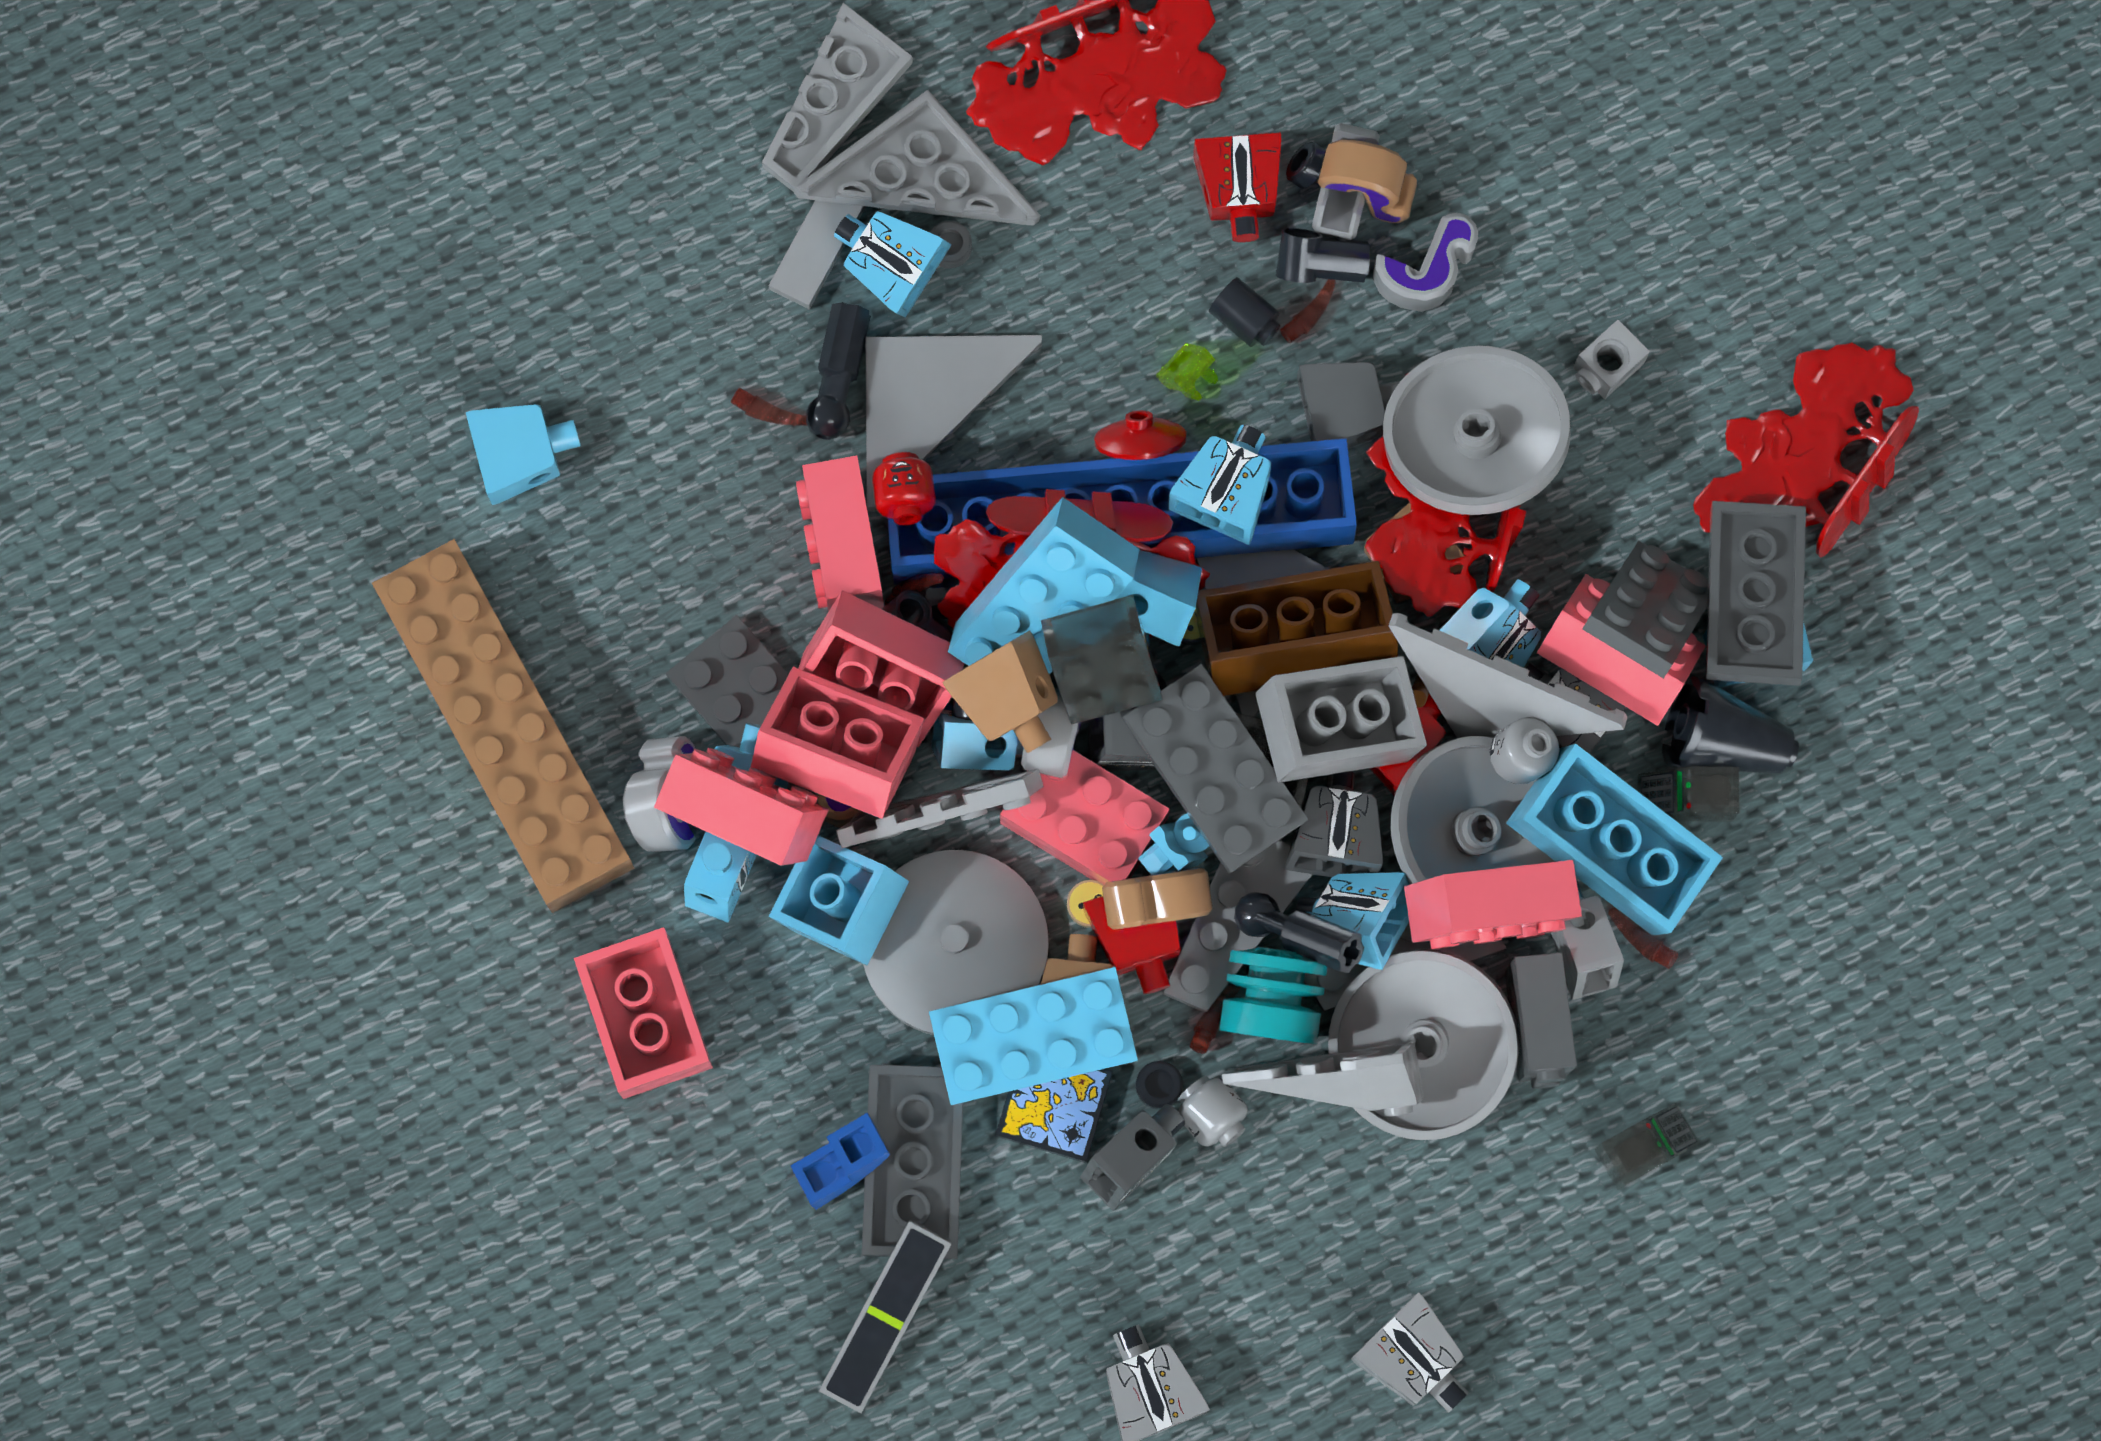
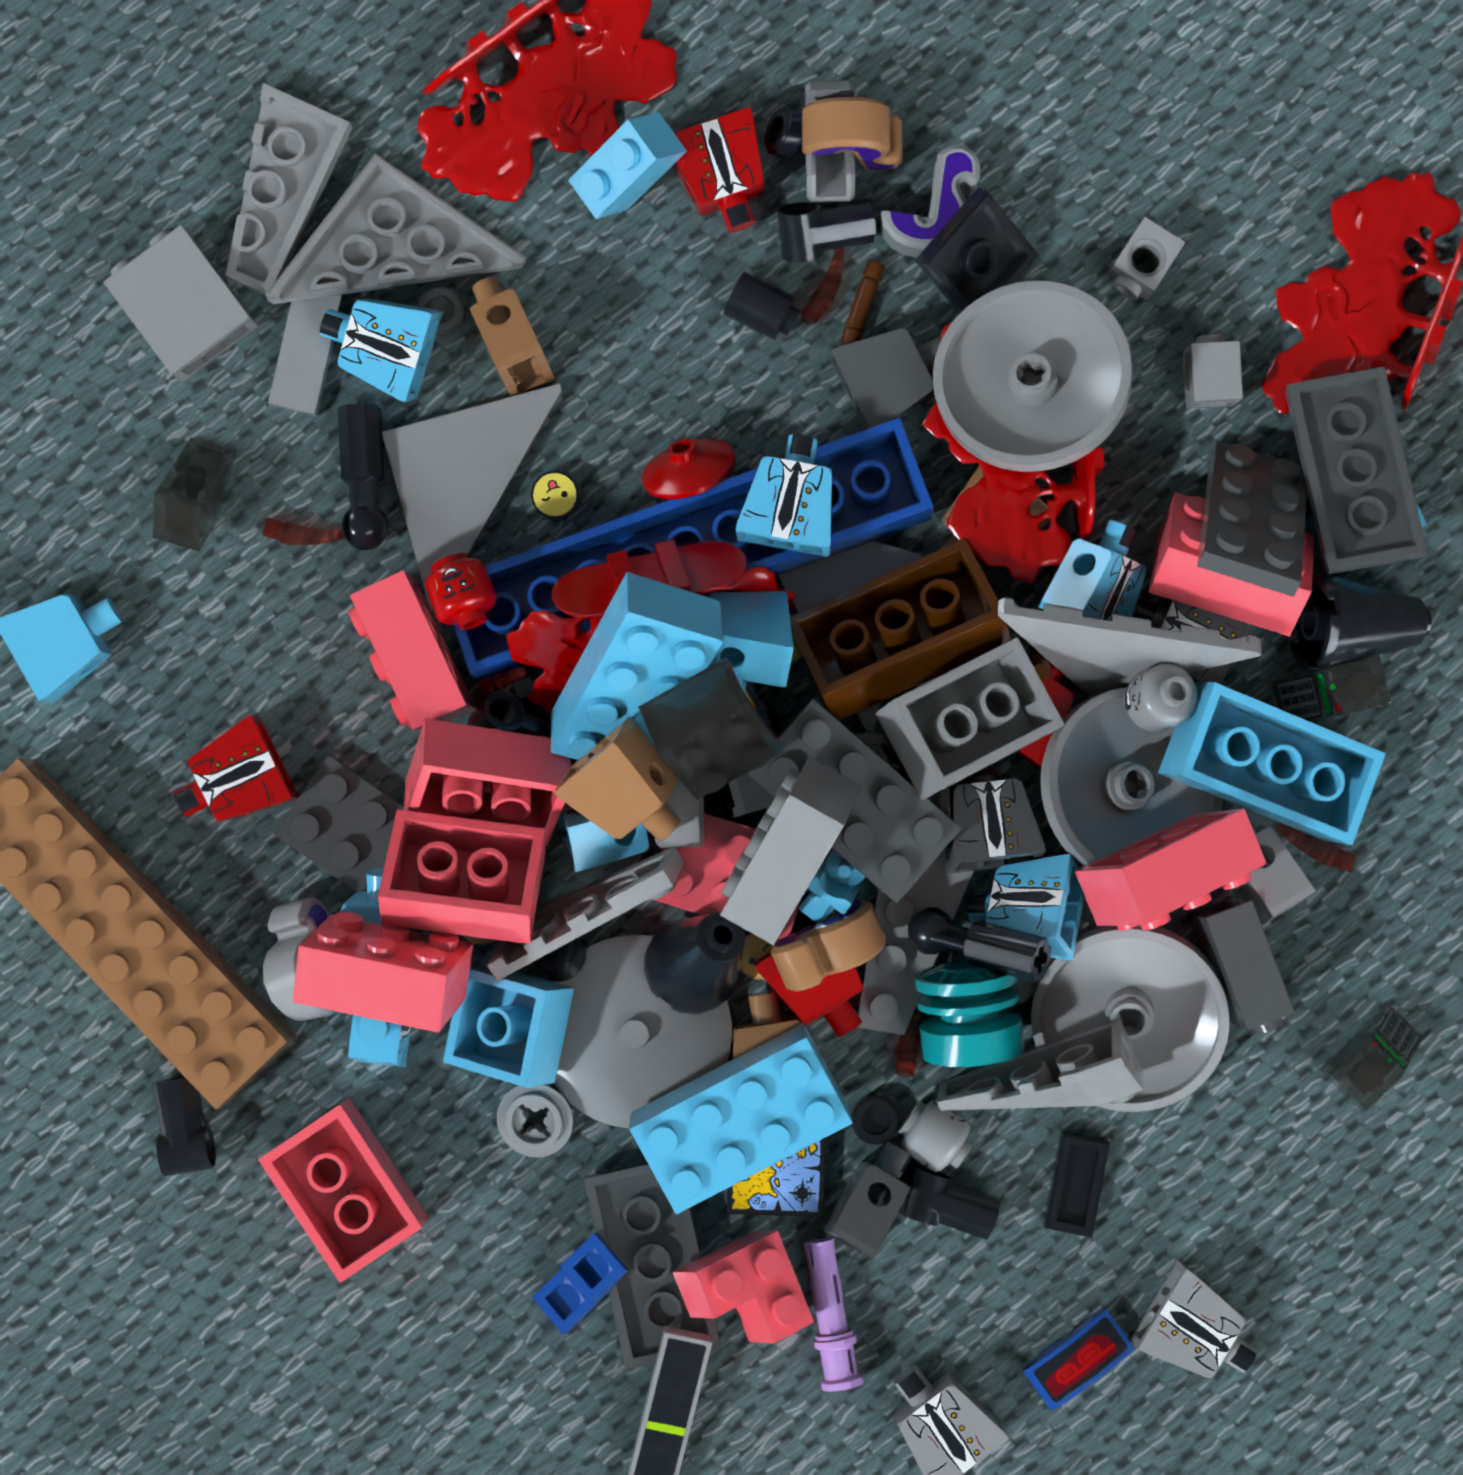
camera: 10 degrees left, 10 degrees up
(505, 932) = (184, 1138): none -> black piece
(647, 610) = (237, 775): none -> red torso
(677, 348) = (192, 494): none -> clear smoke slope
(714, 176) = (179, 302): none -> light grey brick
(818, 991) = (536, 1139): none -> light grey gear
(904, 853) = (563, 962): none -> black tile
(1006, 1196) = (752, 1278): none -> coral brick
(1007, 282) = (509, 337): none -> medium nougat torso
(1010, 435) = (555, 495): none -> light yellow tile
(1032, 883) = (695, 962): none -> black cone
(1068, 1278) = (834, 1336): none -> lavender pin
(1143, 785) = (788, 849): none -> light grey brick
(1155, 155) = (627, 165): none -> medium azure brick
(1185, 368) = (716, 381): clear neon green tile -> none
(1198, 1172) = (940, 1200): none -> black piece
(1294, 1360) = (1078, 1360): none -> slope
(1335, 1195) = (1076, 1184): none -> black tile
(1341, 332) = (862, 302): none -> reddish brown wheel
(1455, 311) = (976, 252): none -> black tile
(1648, 477) = (1212, 372): none -> light grey brick

